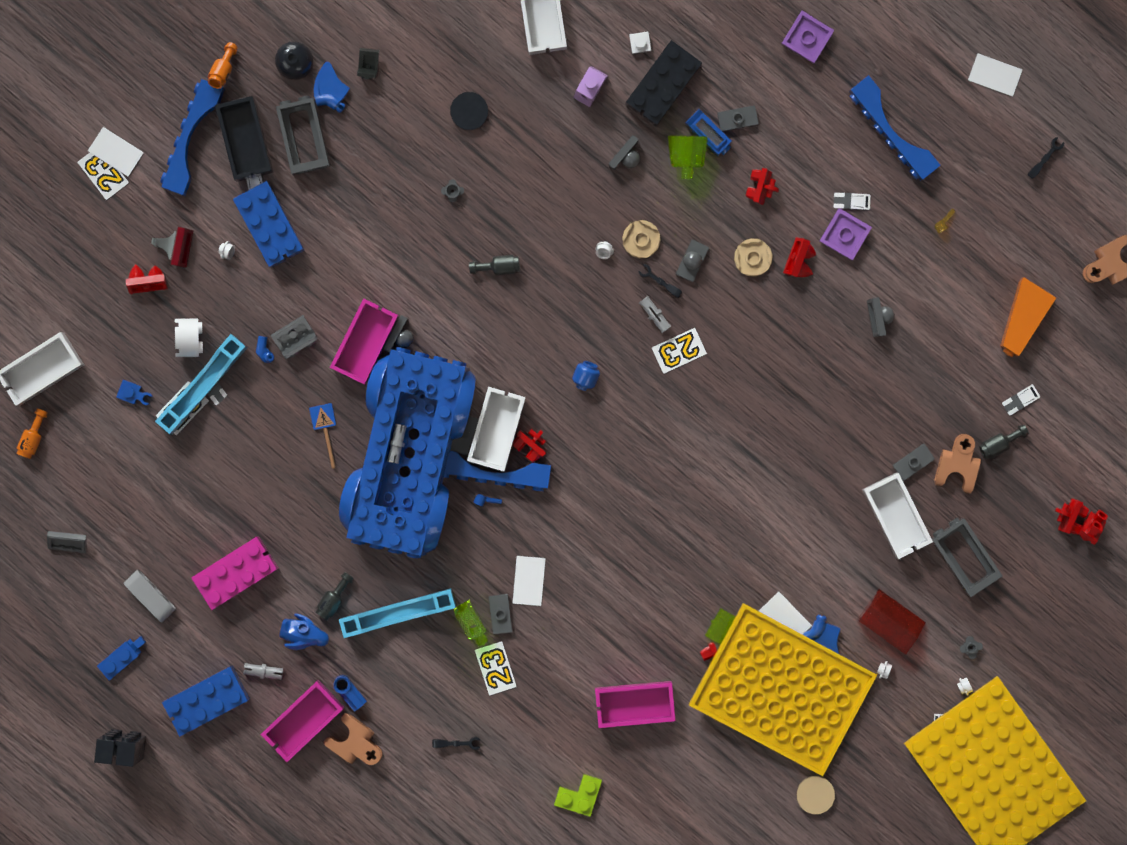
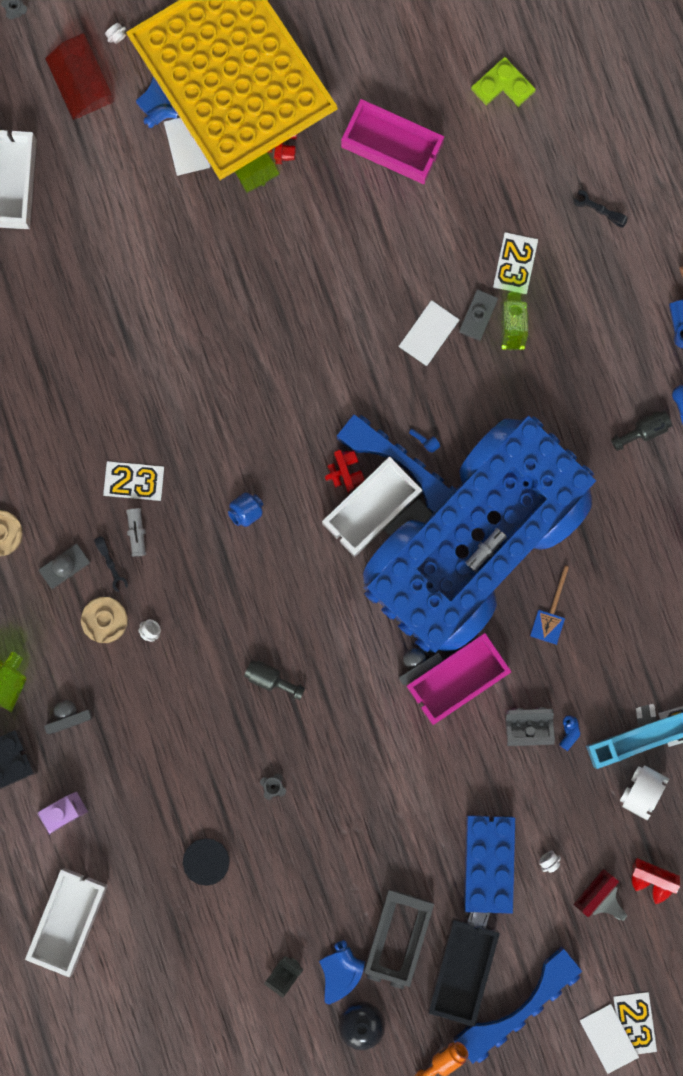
camera: 150 degrees left, 5 degrees down
(397, 613) = (572, 373): medium azure arch -> none

